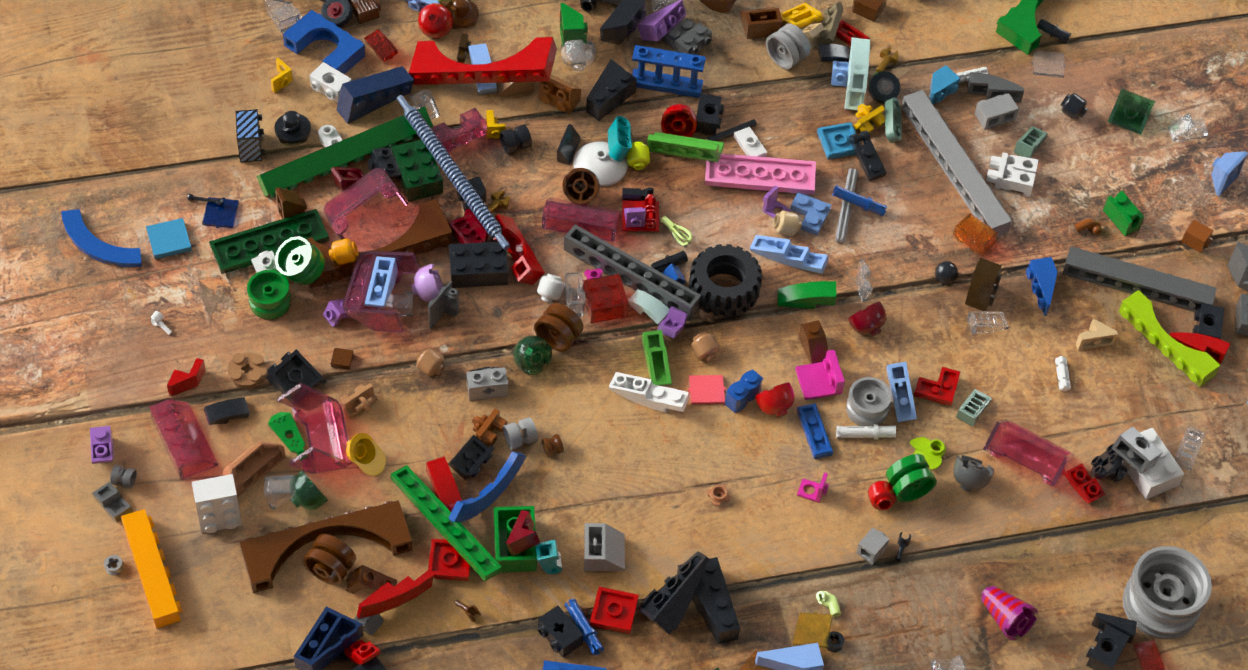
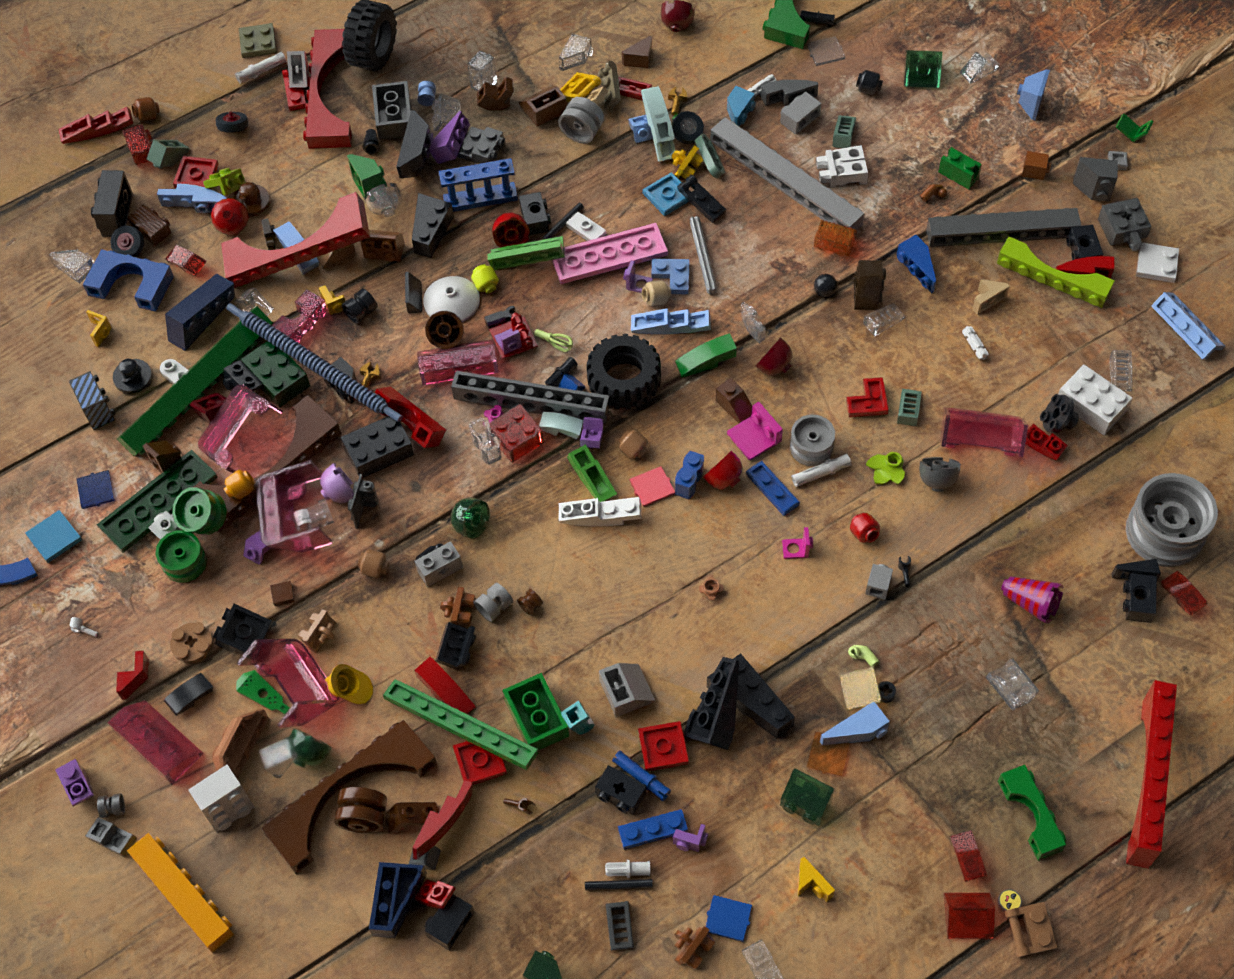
camera: 15 degrees left, 5 degrees up
(109, 569) = (146, 900): light grey bush -> none
(219, 201) = (90, 479): black hinge -> none
(328, 81) = (149, 315): white brick -> none
(381, 282) = (290, 501): light blue slope -> none
(468, 229) = (353, 414): dark red bracket -> none
(472, 507) = (477, 700): blue tile -> none
(522, 535) = (544, 710): dark red slope -> none
(550, 287) = (458, 442): white head -> none
(559, 326) = (485, 479): reddish brown wheel -> none
(619, 138) = (460, 268): teal beam -> none
(832, 52) = (626, 110): black slope -> none
(861, 201) = (714, 245): blue pin -> none
(901, 391) = (833, 410): light blue slope -> none
(911, 478) = (886, 500): green wheel -> none
(1137, 450) = (1084, 392): dark grey brick -> none

